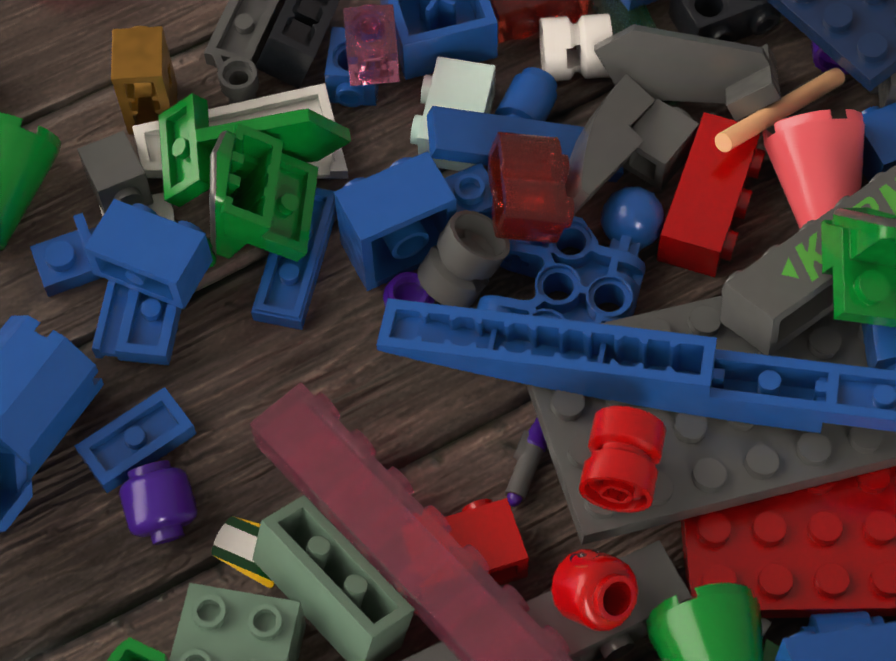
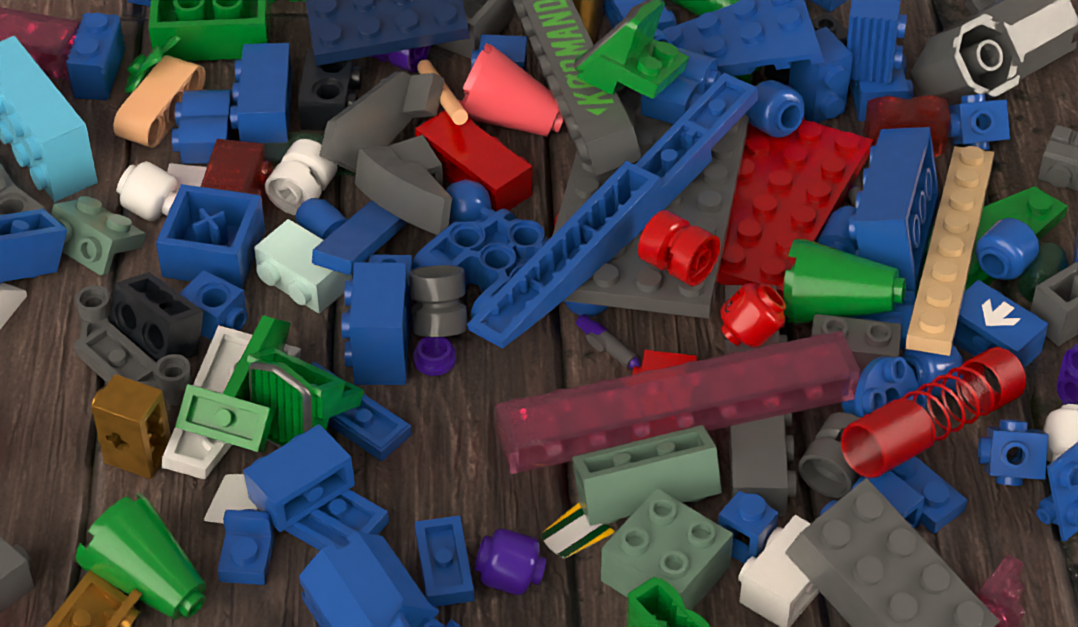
camera: 65 degrees left, 15 degrees down
(115, 171) = (198, 487): dark grey brick -> none
(375, 60) = (224, 268): clear pink brick -> none
(529, 187) = (419, 228): clear red brick -> none

